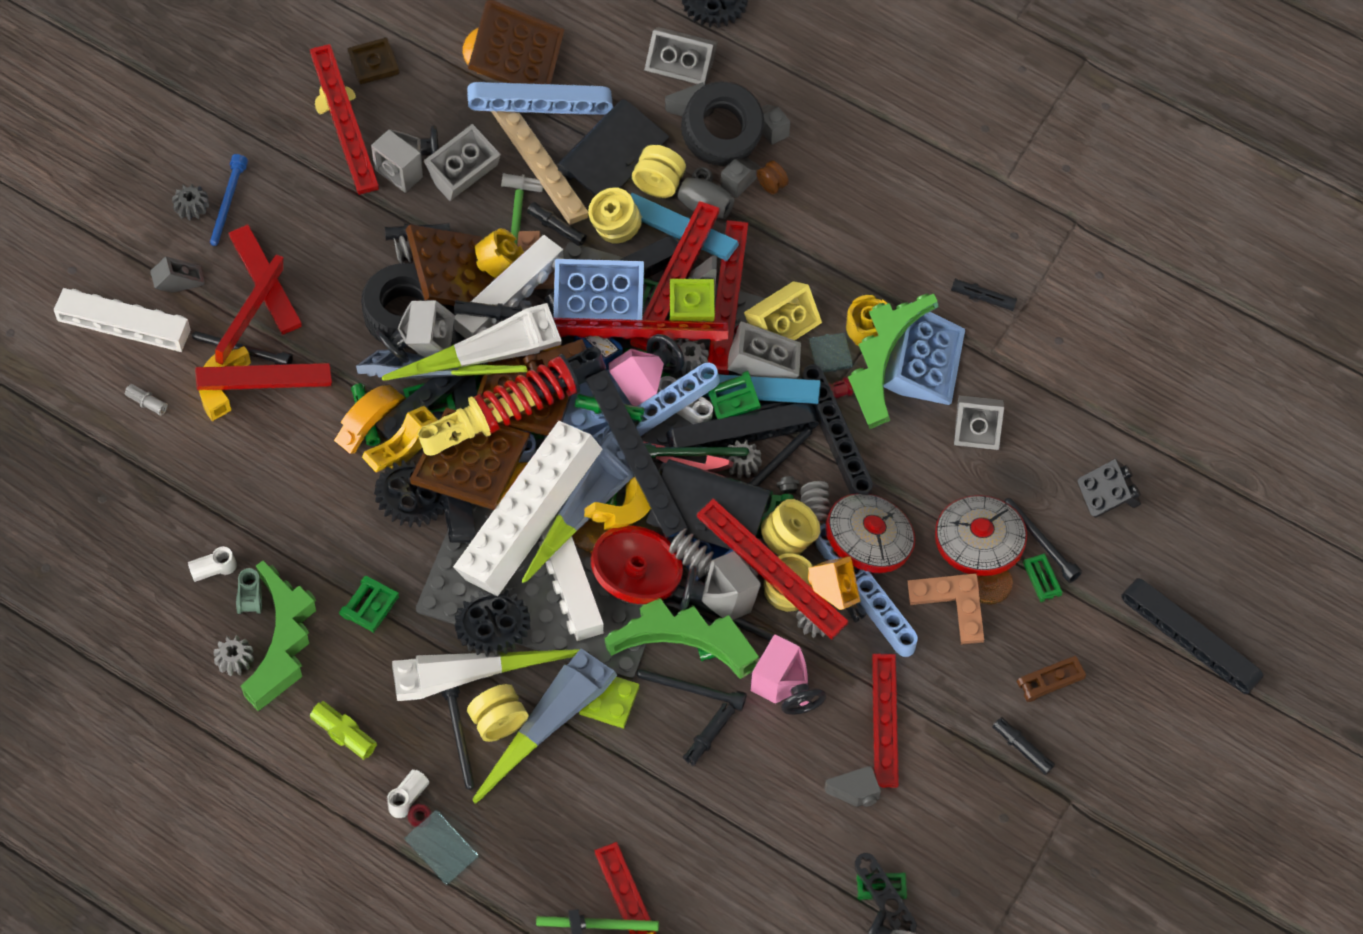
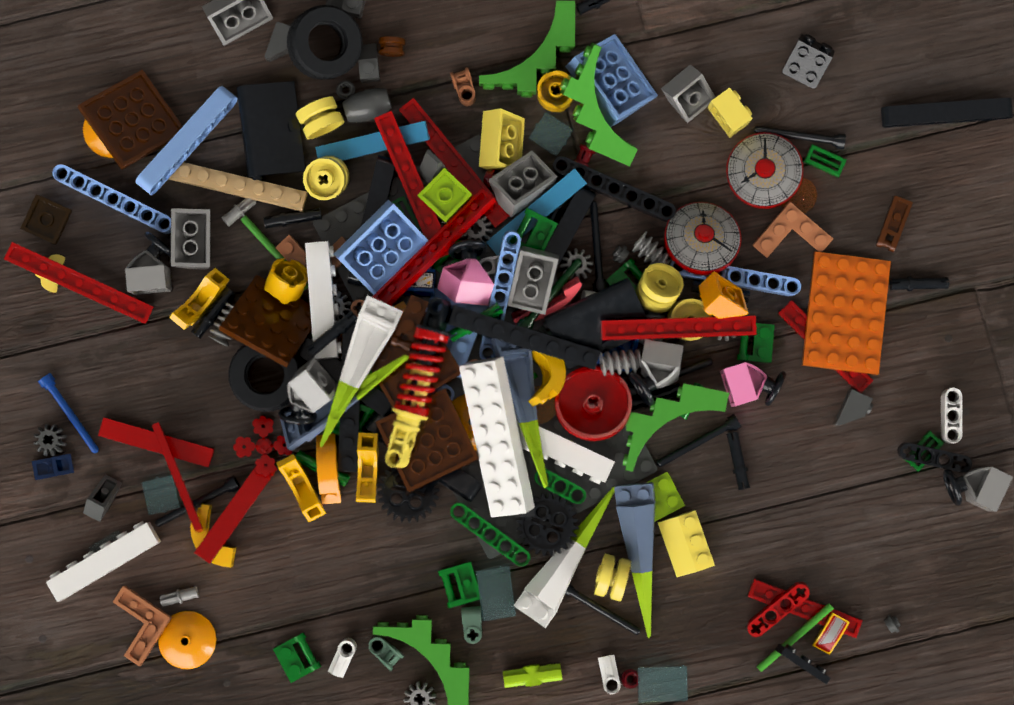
camera: 45 degrees left, 25 degrees up
(103, 398) = (154, 623): none -> nougat plate
(115, 447) = (200, 638): none -> light orange dish
(168, 224) = (52, 467): none -> dark blue slope
(171, 528) = (291, 660): none -> green plate
(218, 317) = (160, 495): none -> clear light blue piece
(337, 403) = (301, 487): none -> yellow arch
(340, 356) = (263, 446): none -> red plant
(342, 642) = (472, 620): none -> sand green piece
(389, 638) = (495, 593): none -> clear light blue piece
(436, 85) = (105, 195): none -> light blue beam
(437, 210) = (201, 299): none -> yellow arch
(439, 594) = (480, 532): none -> green beam
(537, 613) = (567, 493): none -> green beam
(591, 755) = (686, 543): none -> light yellow slope
(609, 879) = (776, 607): none -> red beam
(692, 422) = (533, 280): none -> light grey slope
(798, 253) = (463, 83): none -> nougat piece
(833, 664) = (762, 345): none -> green plate
(907, 287) = (524, 75): none -> bright green arch
(932, 708) = (846, 313): none -> orange plate
(941, 867) = (956, 407): none -> white beam
(998, 461) = (730, 112): none -> light yellow brick

